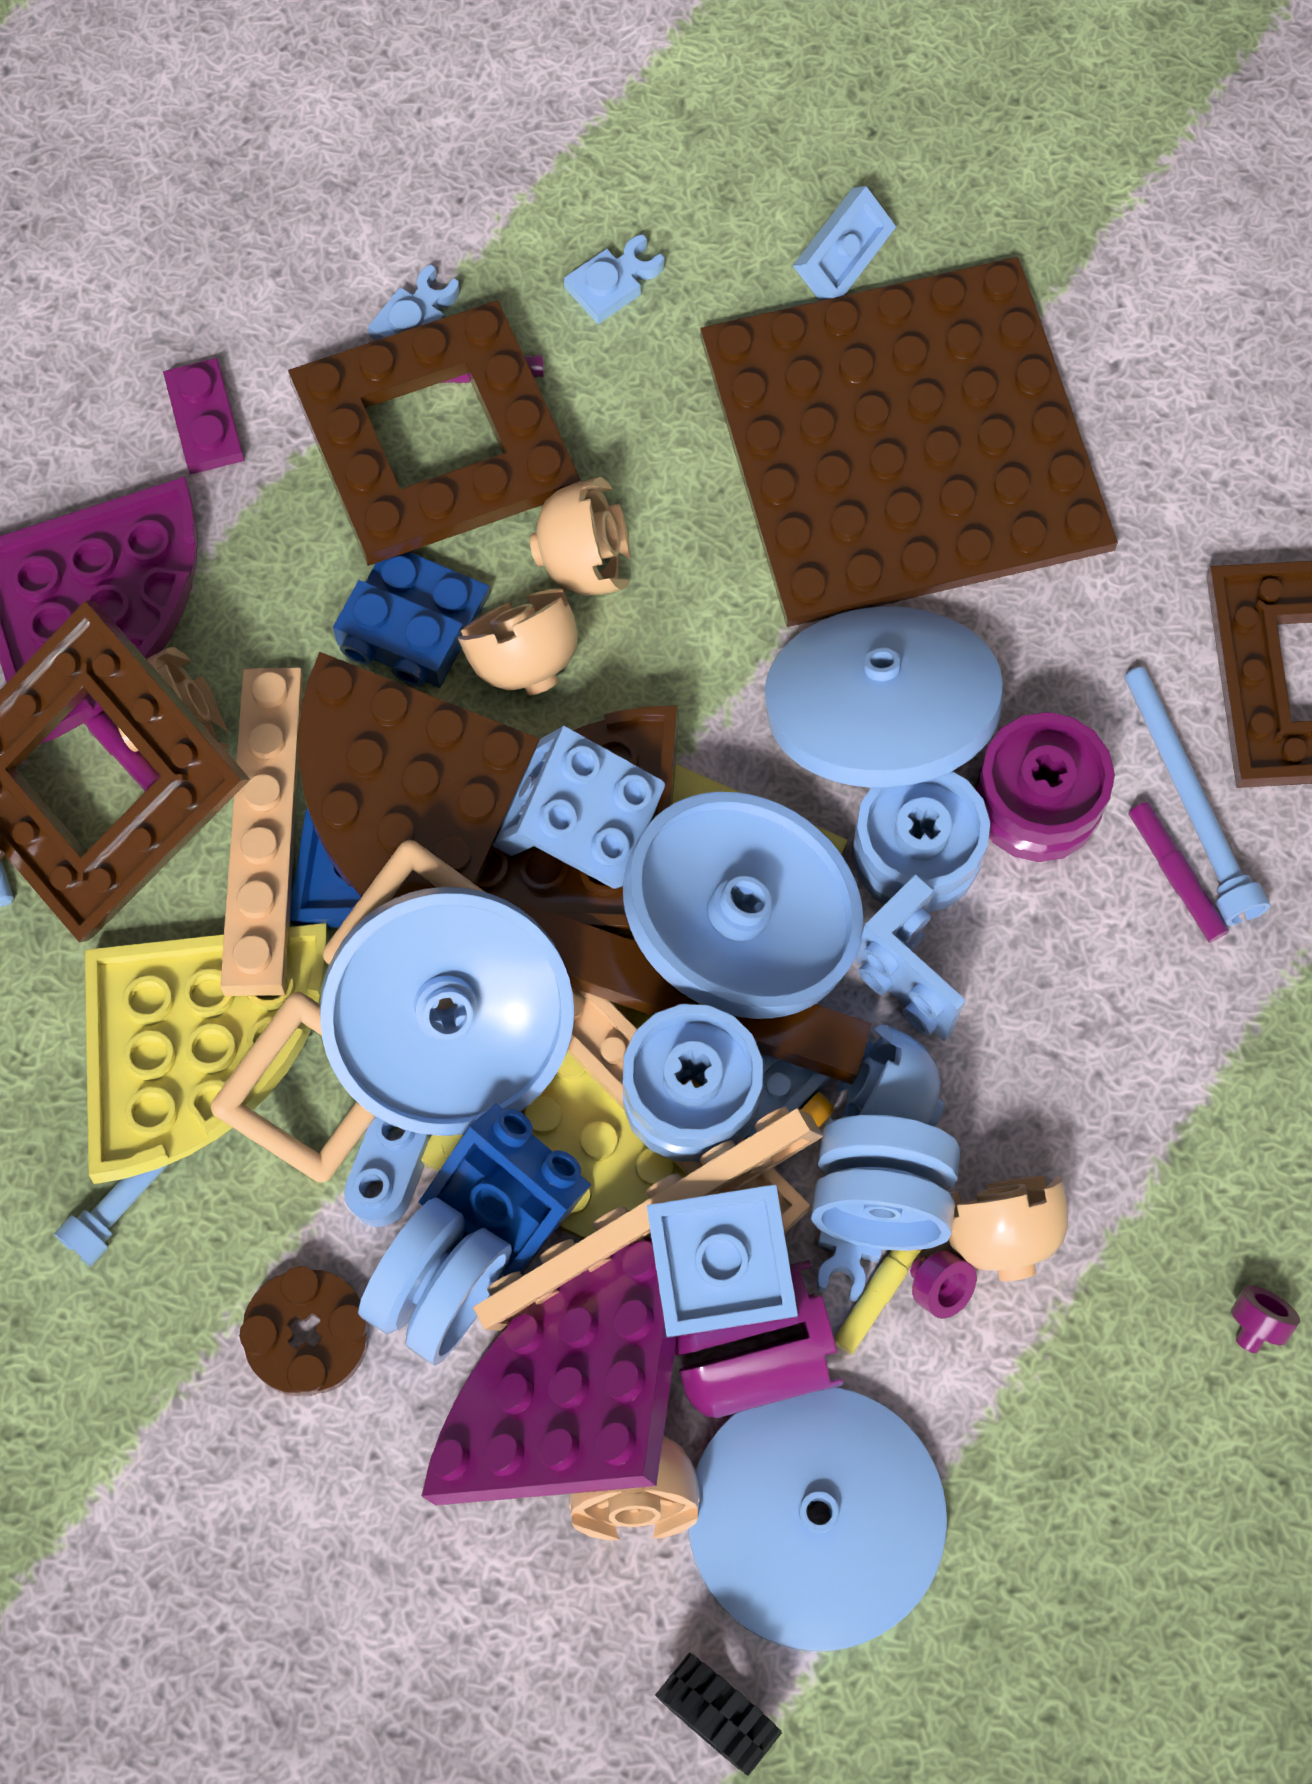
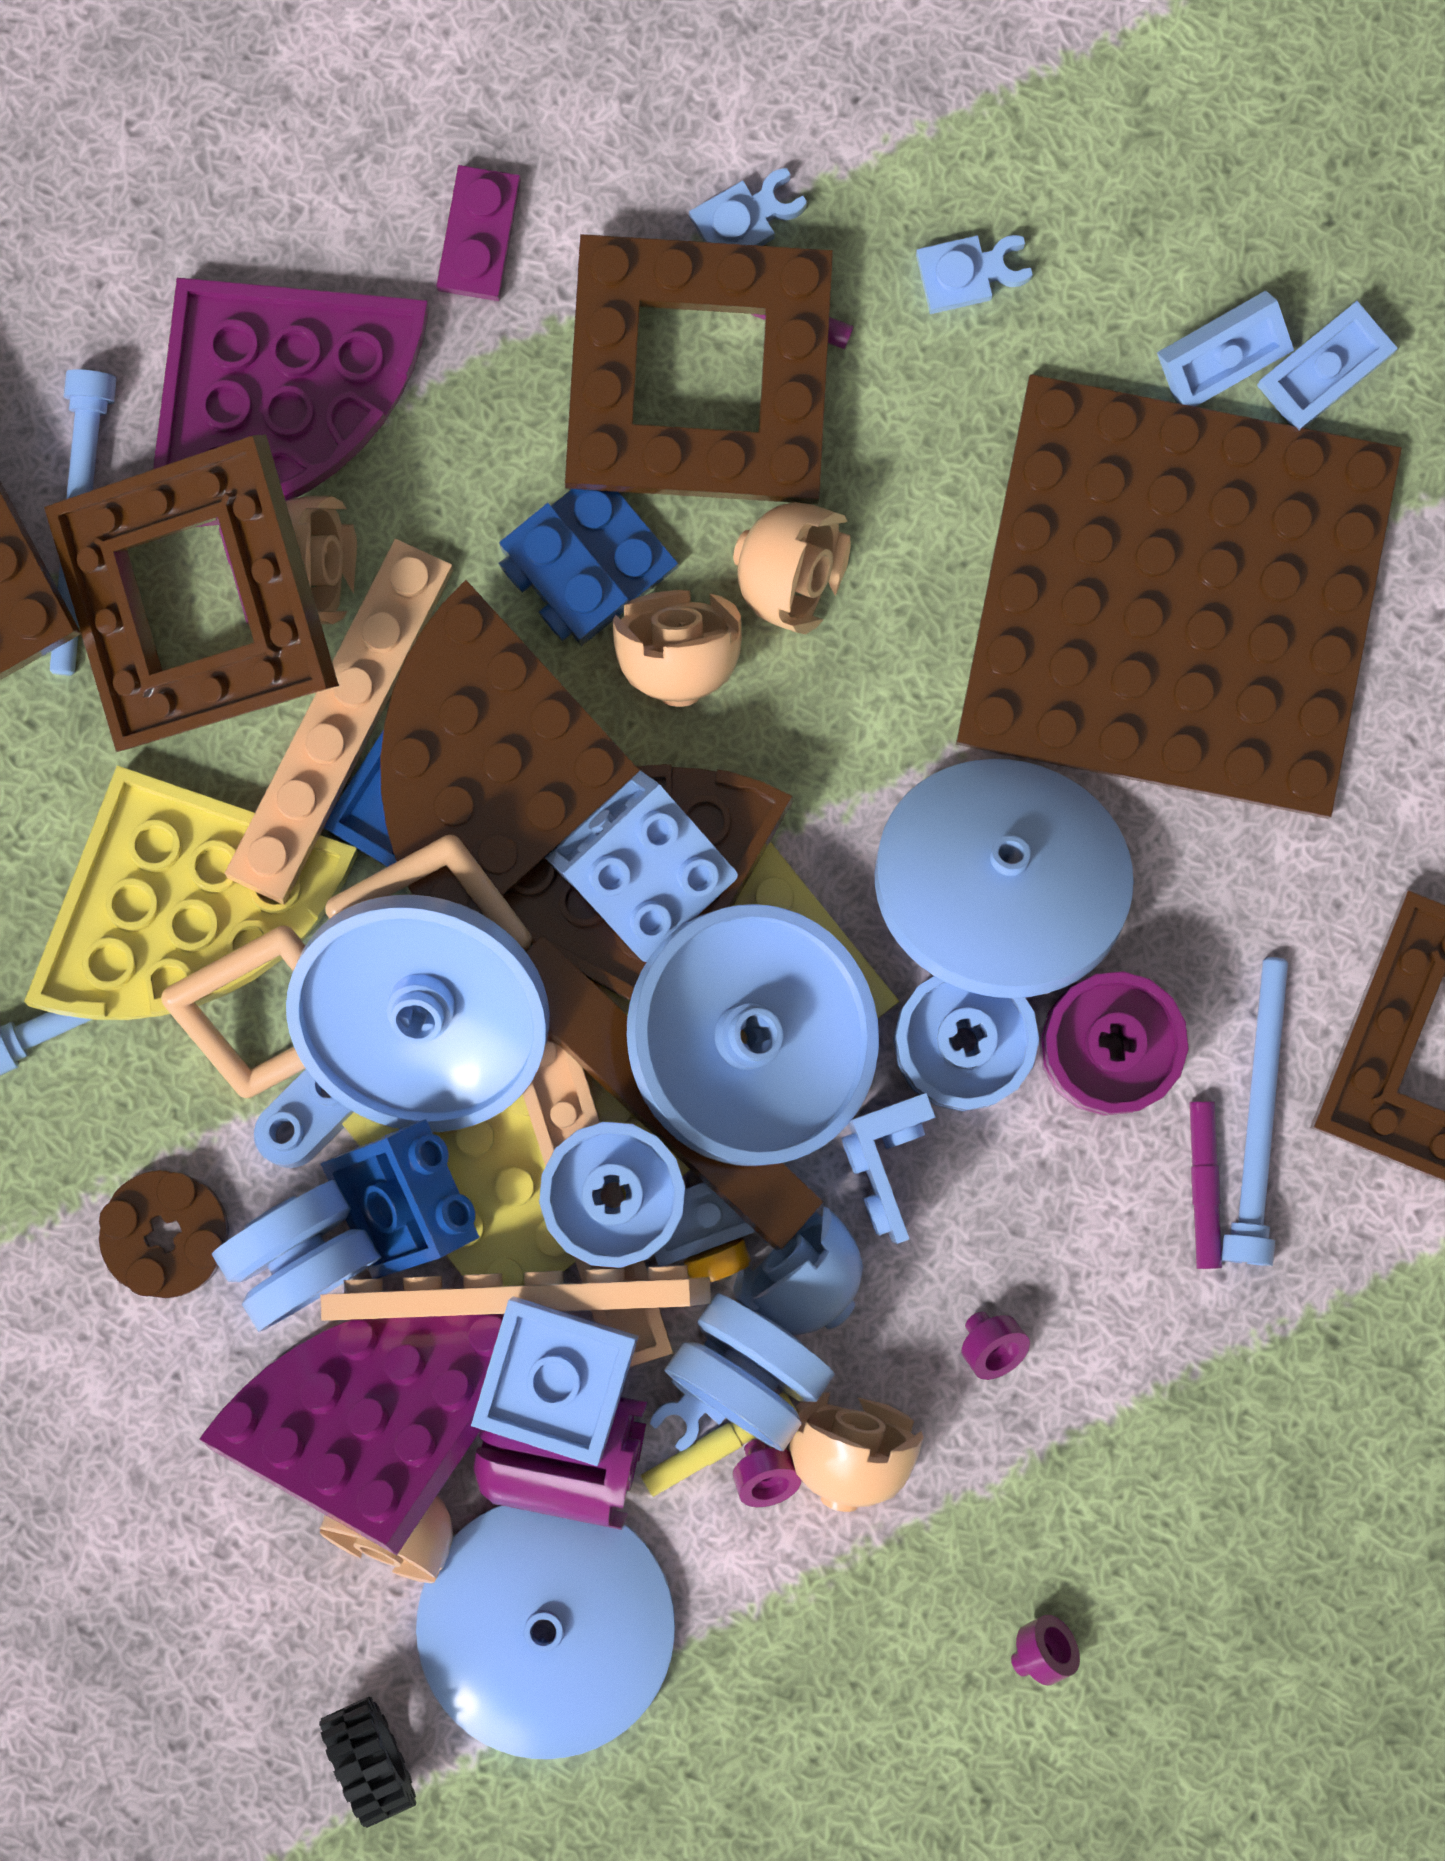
camera: 30 degrees right, 15 degrees up
(928, 225) = (1327, 366): none -> light blue plate
(1077, 1079) = (994, 1345): none -> magenta tile

